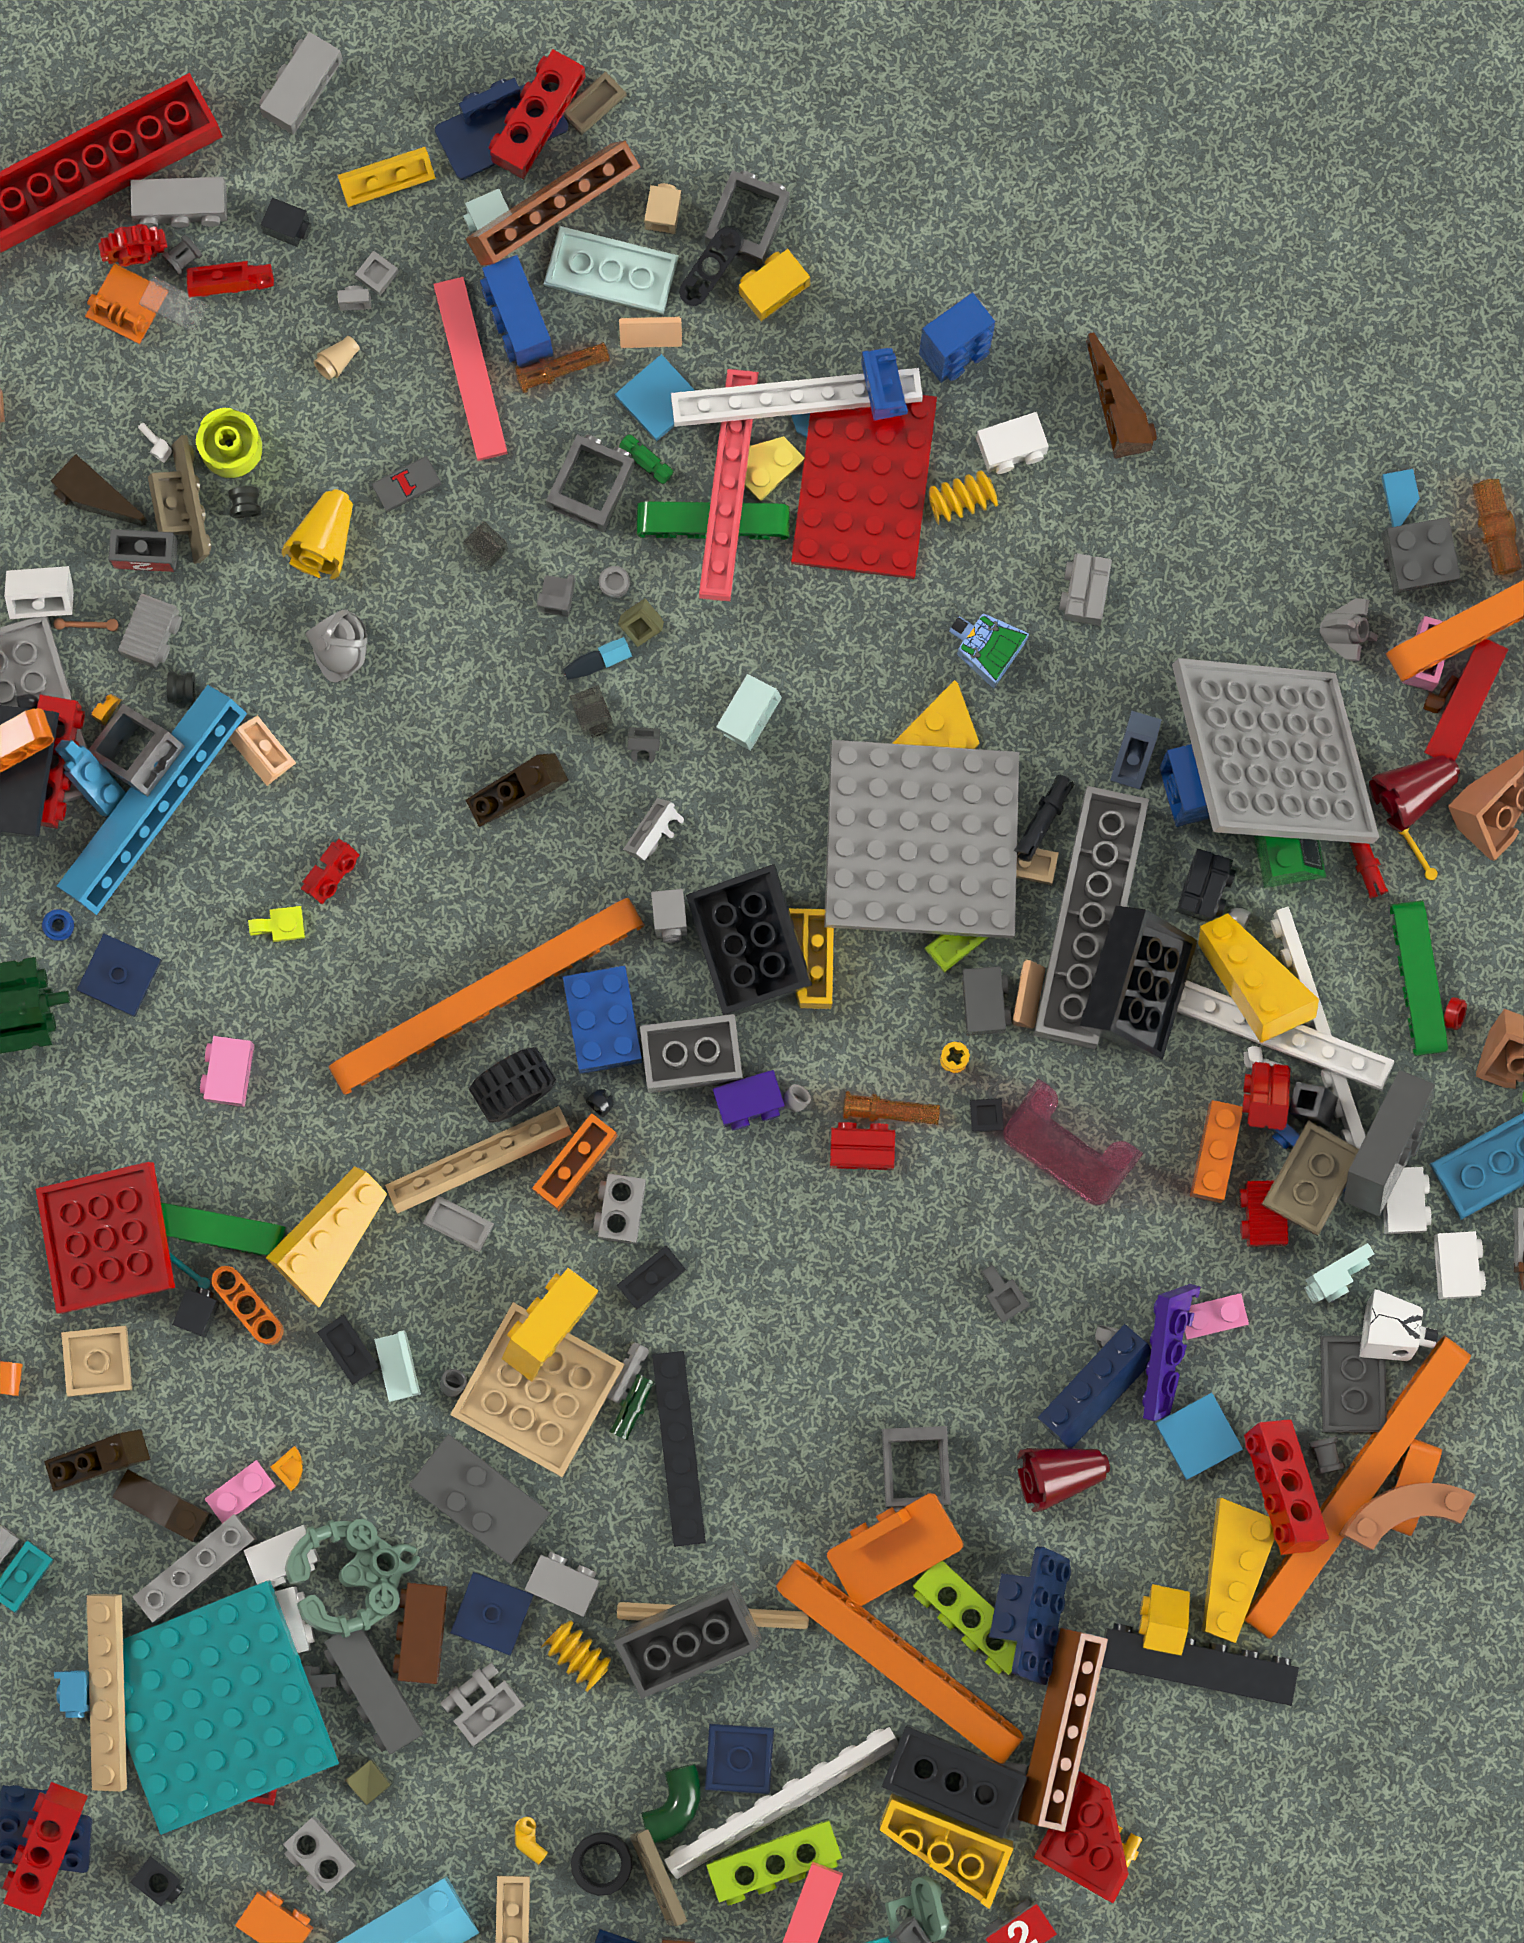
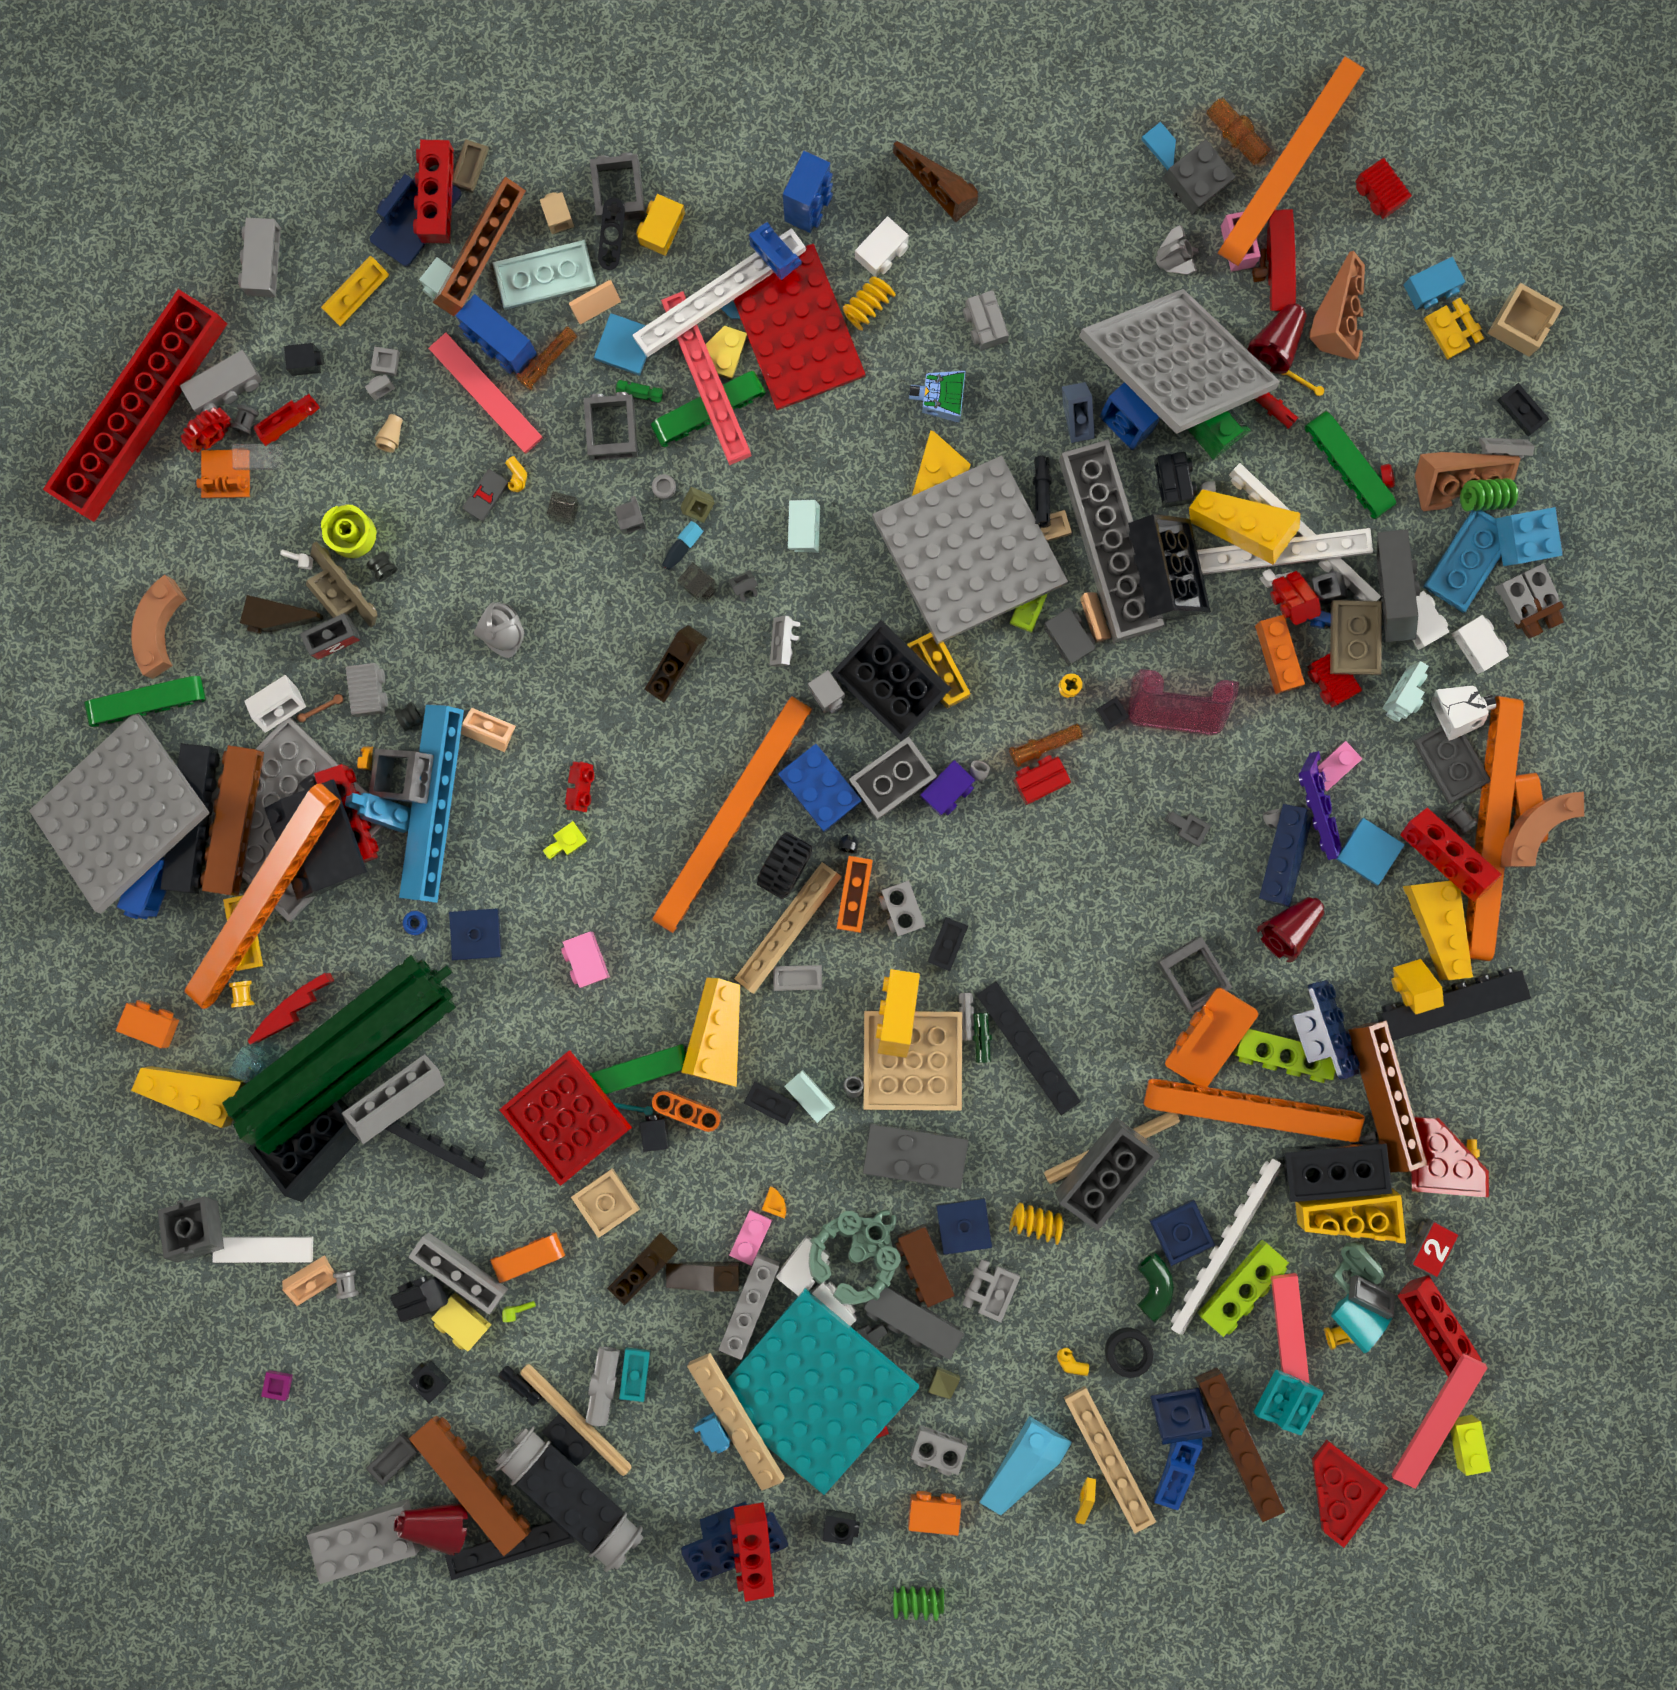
camera: 25 degrees left, 5 degrees up
(321, 536) = (447, 562): yellow cone -> none
(456, 482) = (519, 475): none -> yellow arm
(562, 1584) = (1001, 1181): light grey brick -> none
(658, 1878) = (1174, 1343): dark tan tile -> none

